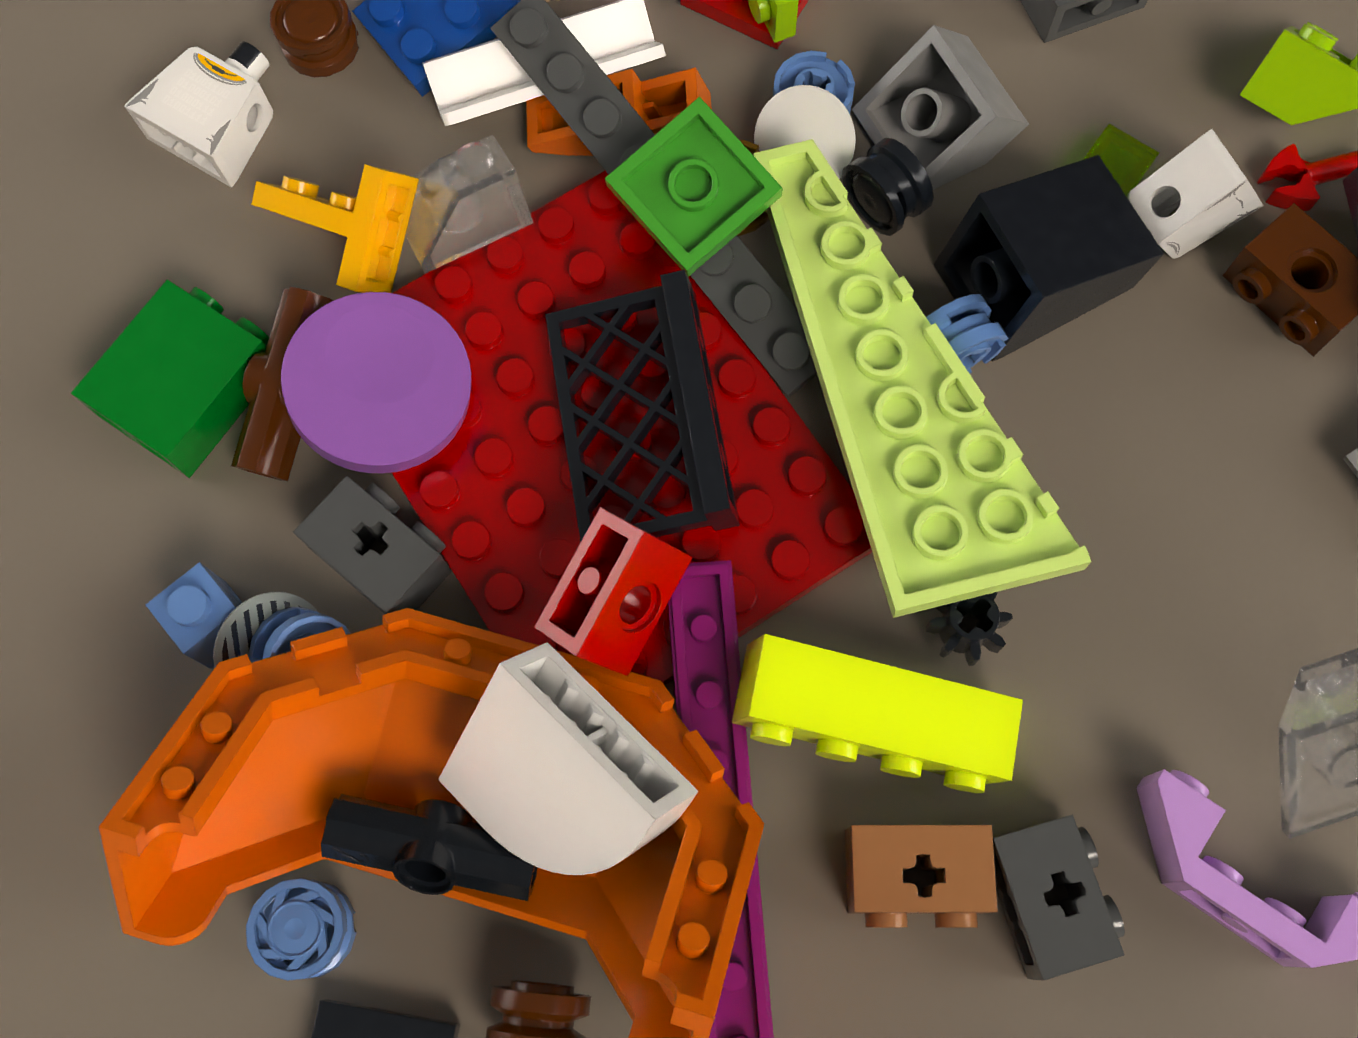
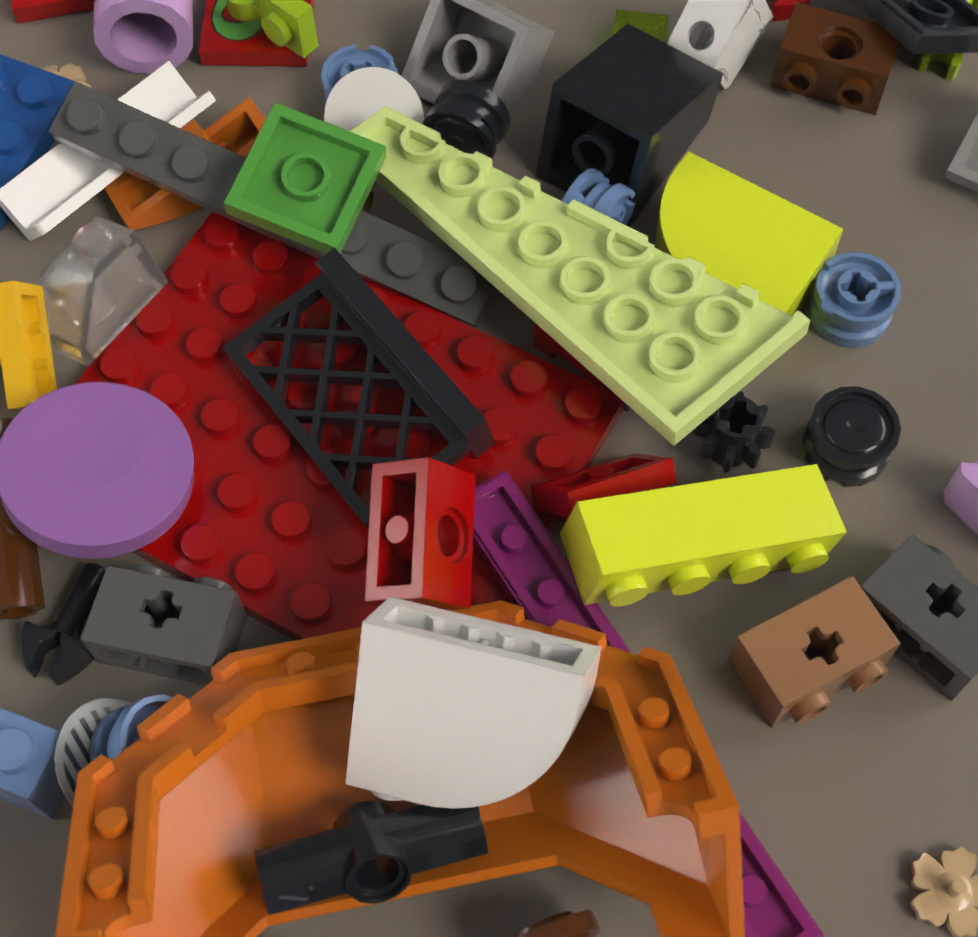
camera: 30 degrees left, 10 degrees down
(292, 509) = (64, 630): none -> black bar
(816, 617) = (612, 478): none -> red plate
(1081, 682) = (851, 435): none -> black wheel
(1088, 434) = (744, 233): none -> neon yellow brick
(1141, 551) = (834, 304): none -> medium blue wheel

